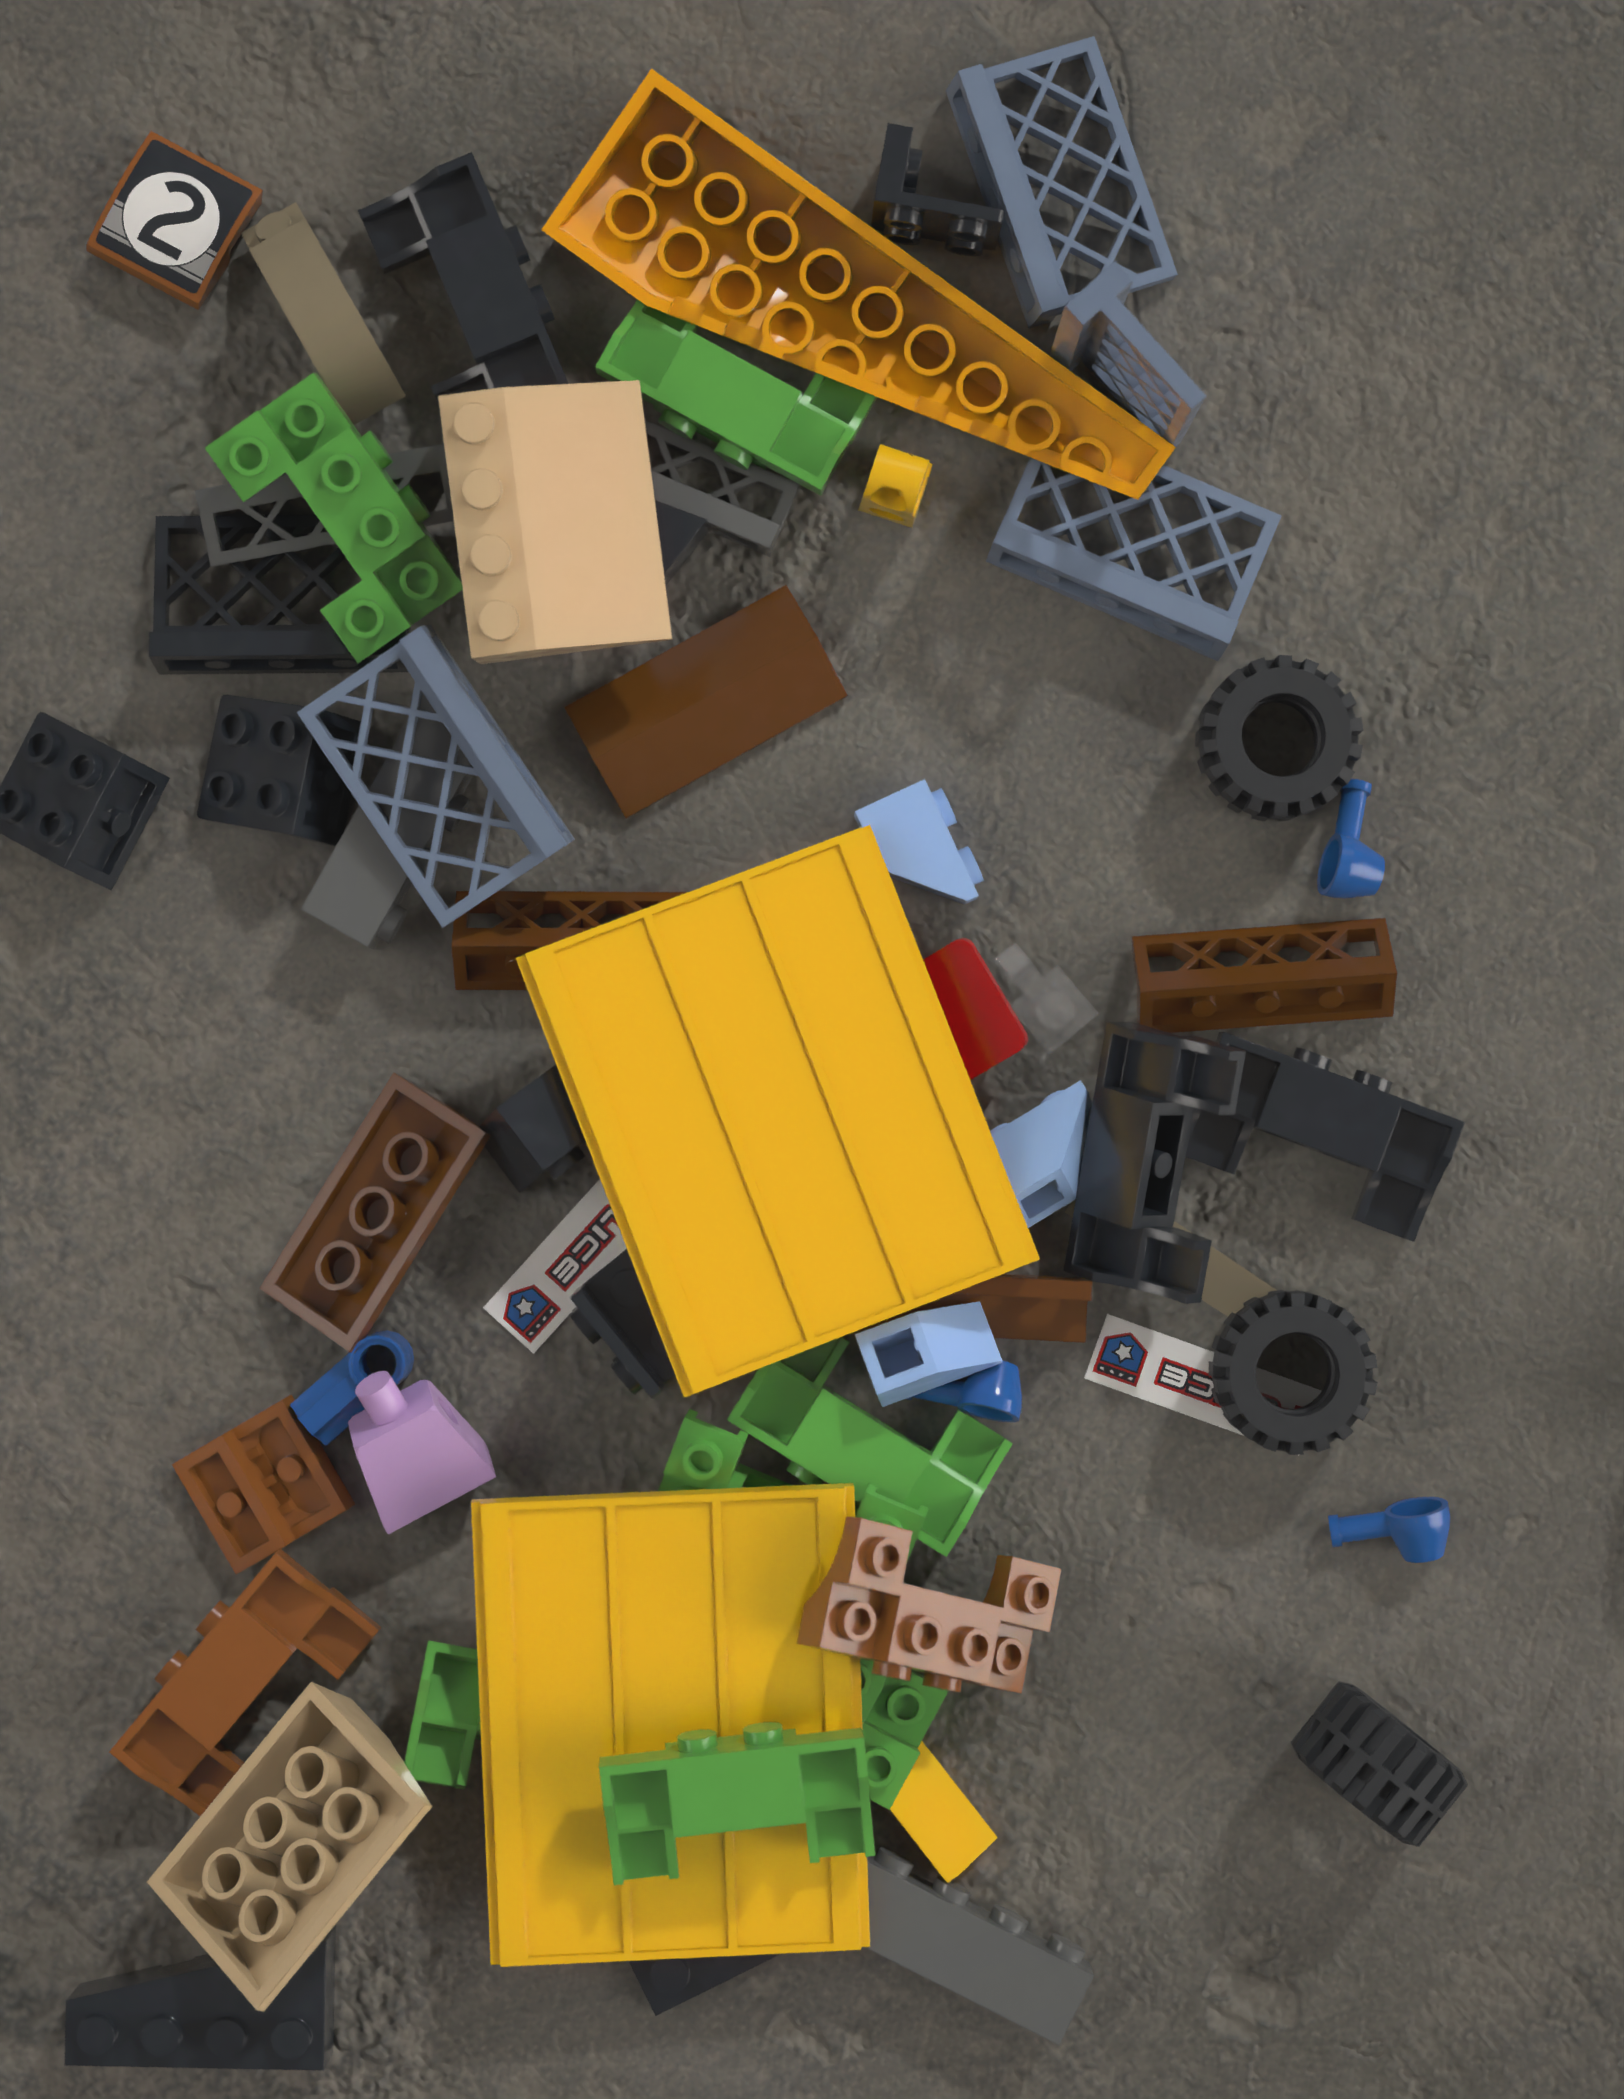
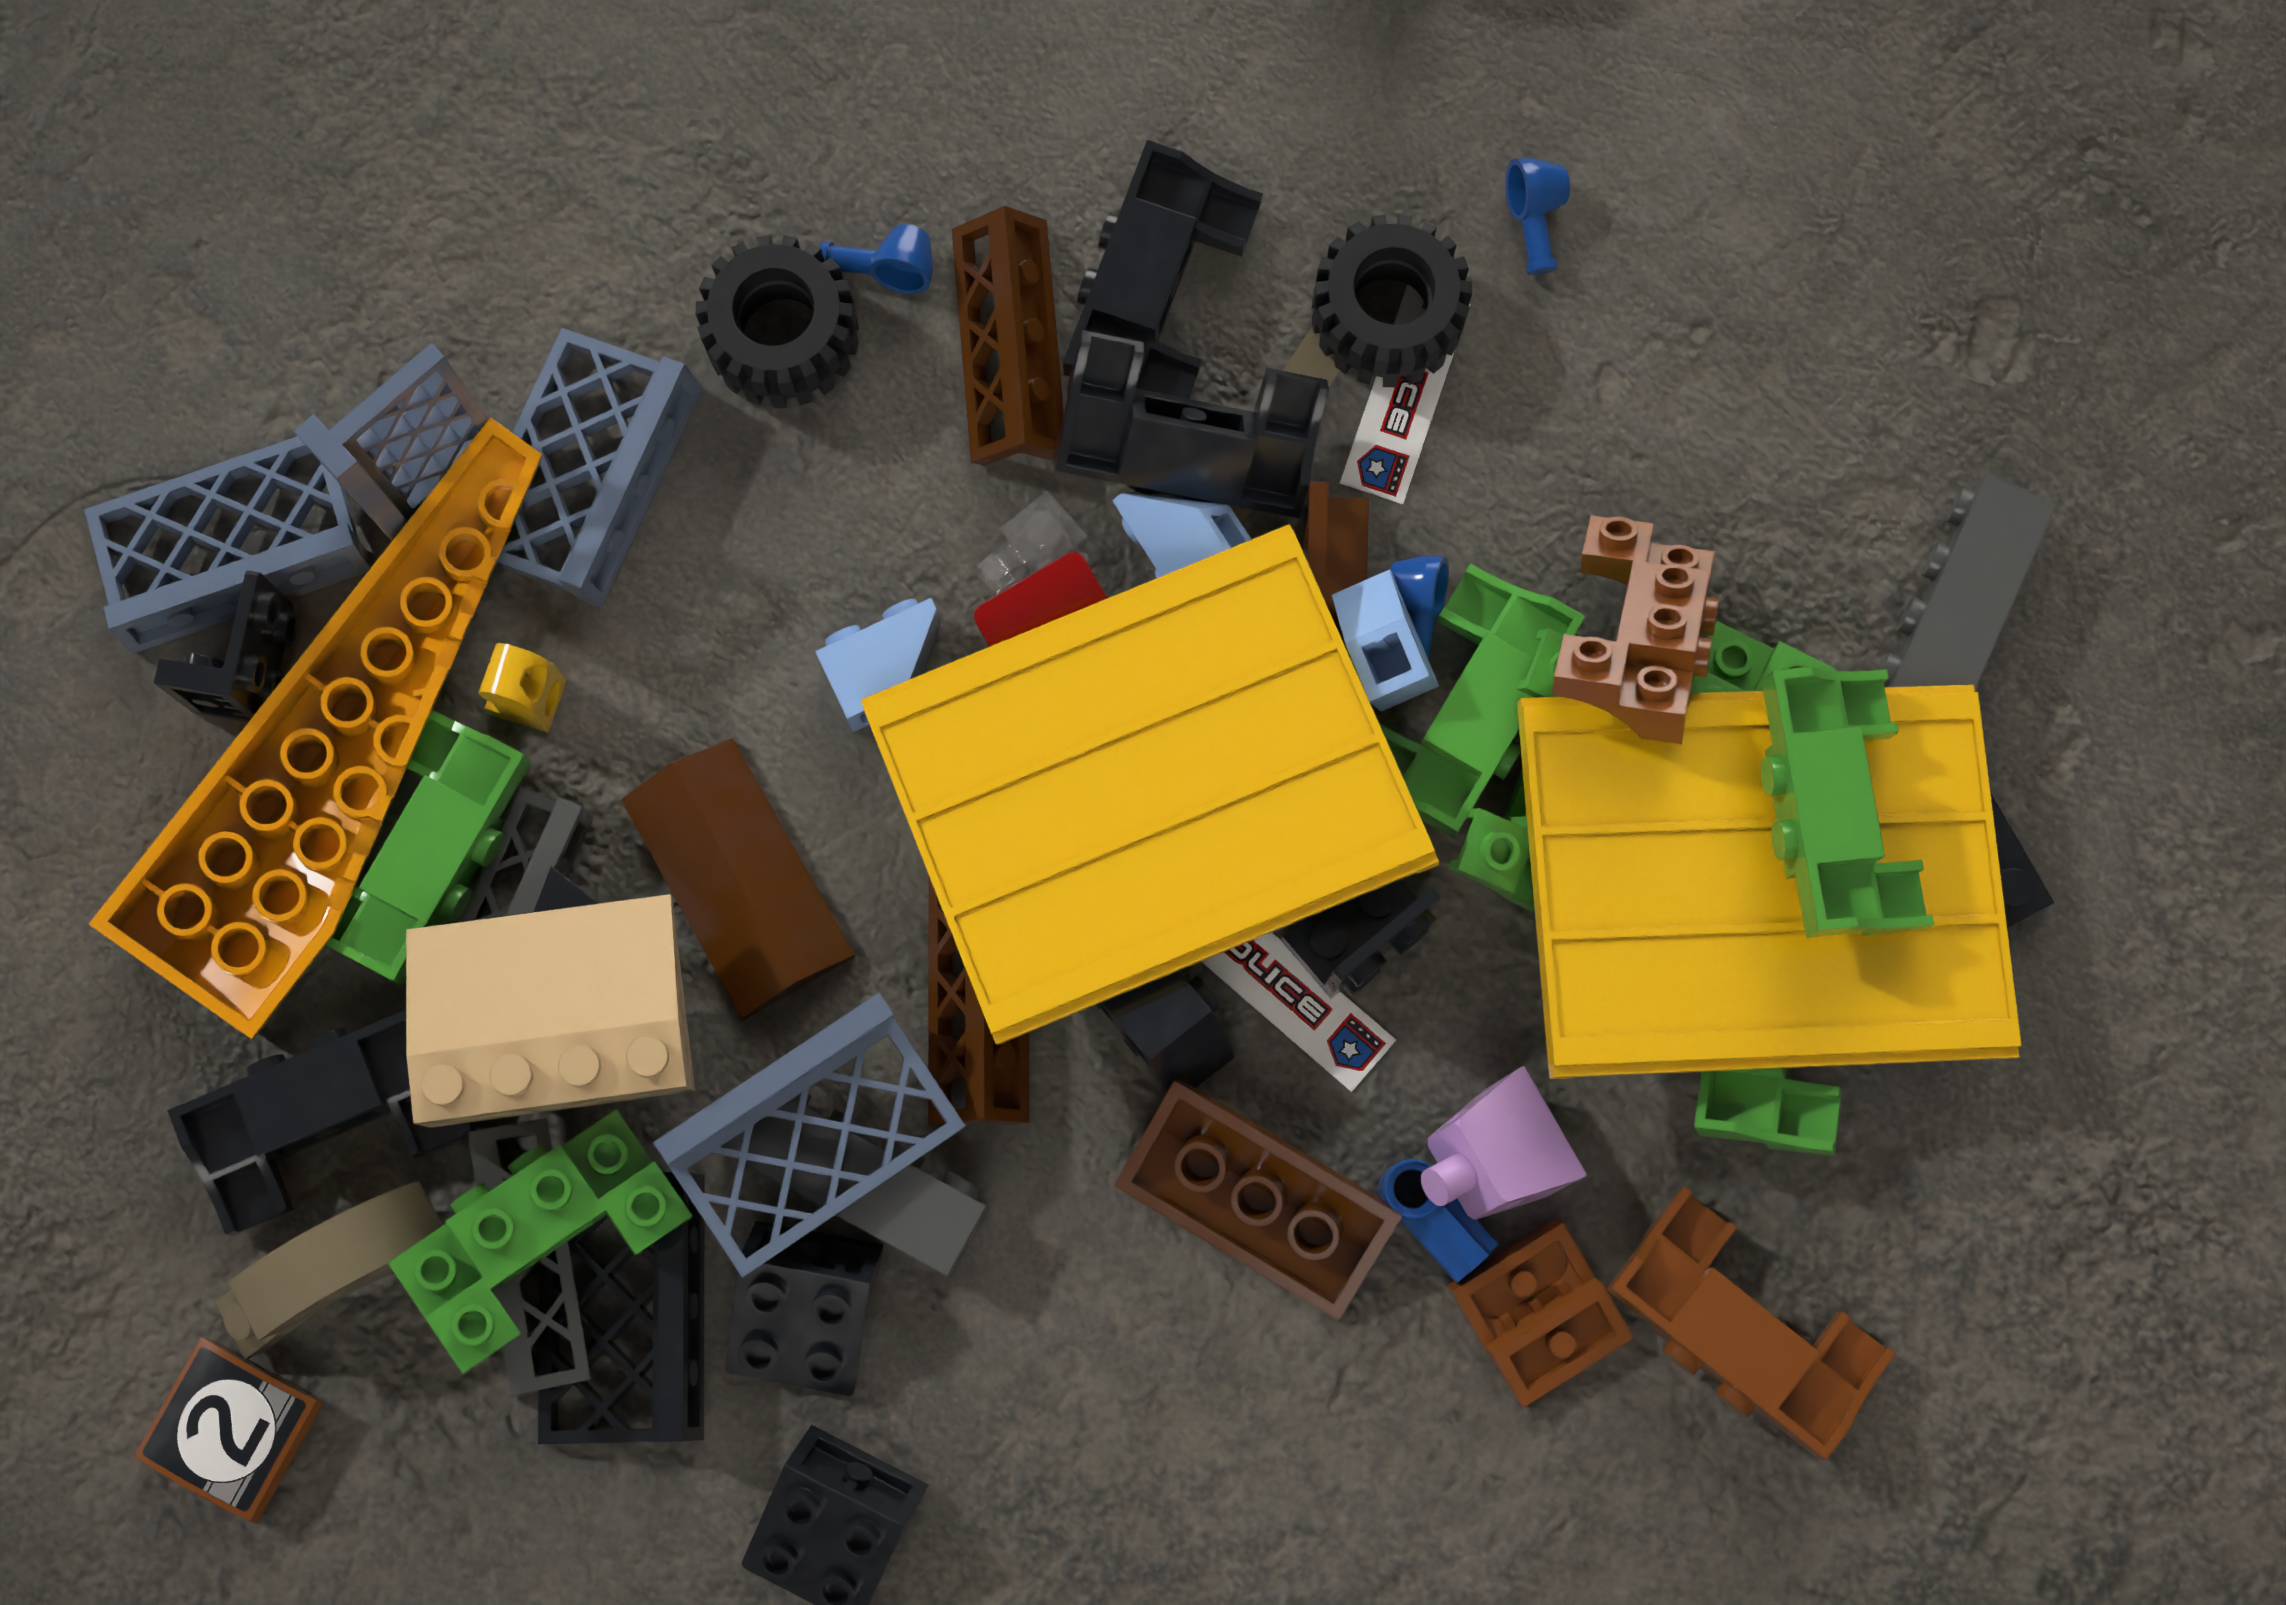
camera: 90 degrees left, 10 degrees down
(200, 2019) = (2085, 1350): black wedge -> none
(291, 1842) = (1912, 1260): tan slope -> none
(941, 1817) = (1844, 626): yellow slope -> none
(1378, 1764) = (1765, 208): black tyre -> none

